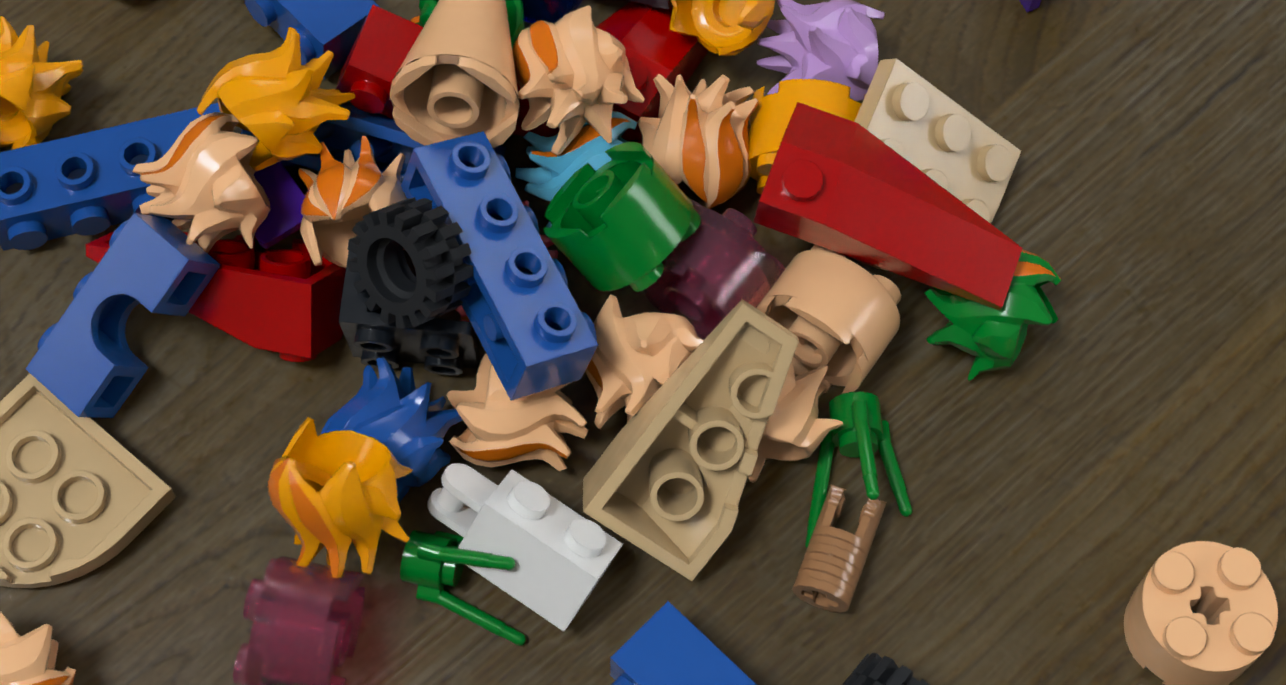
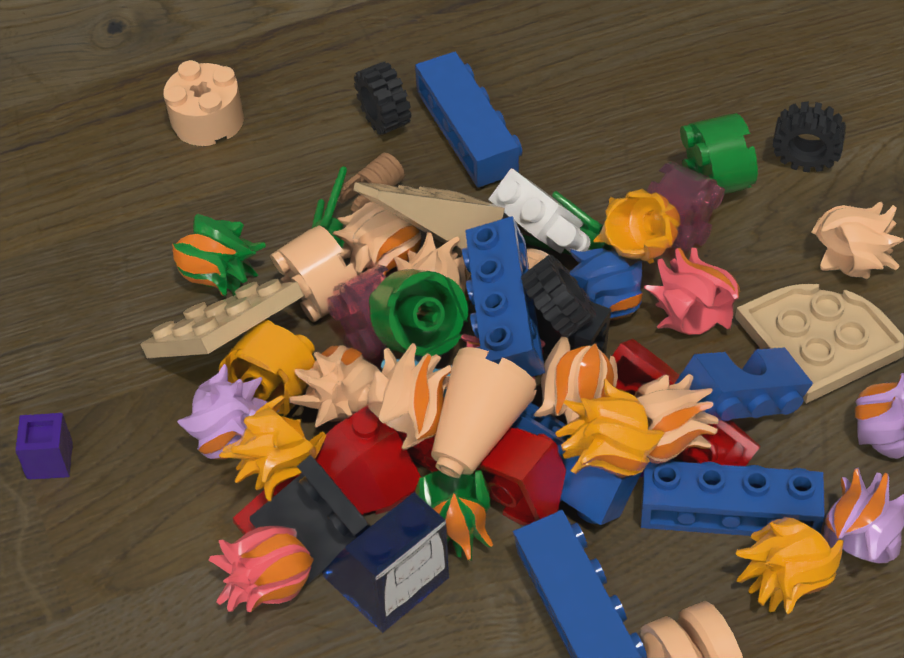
camera: 155 degrees left, 15 degrees down
(230, 474) = (694, 294): none -> coral hair
(869, 203) = (270, 269): red wedge -> none

